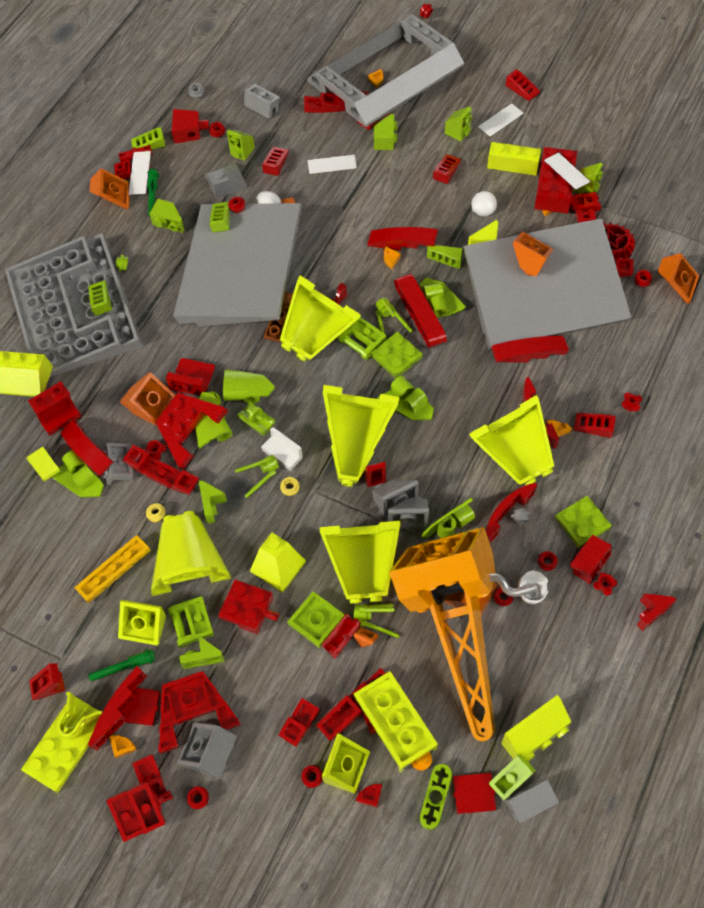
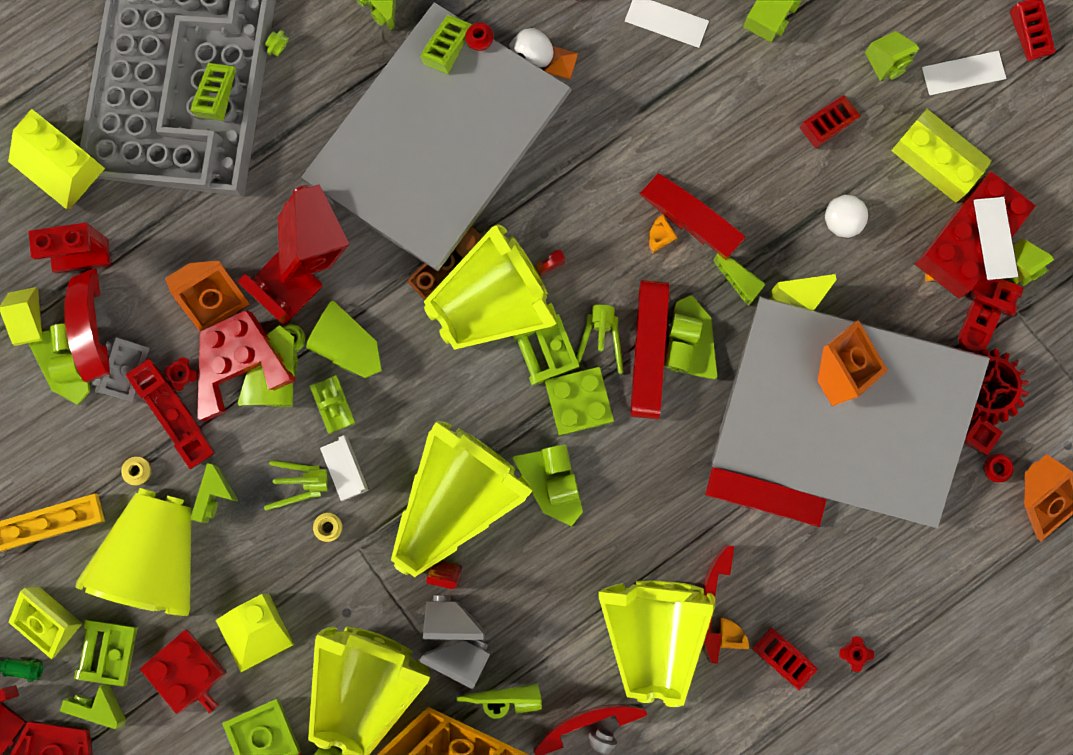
camera: 25 degrees right, 20 degrees up
(194, 338) = (308, 234): none -> red slope

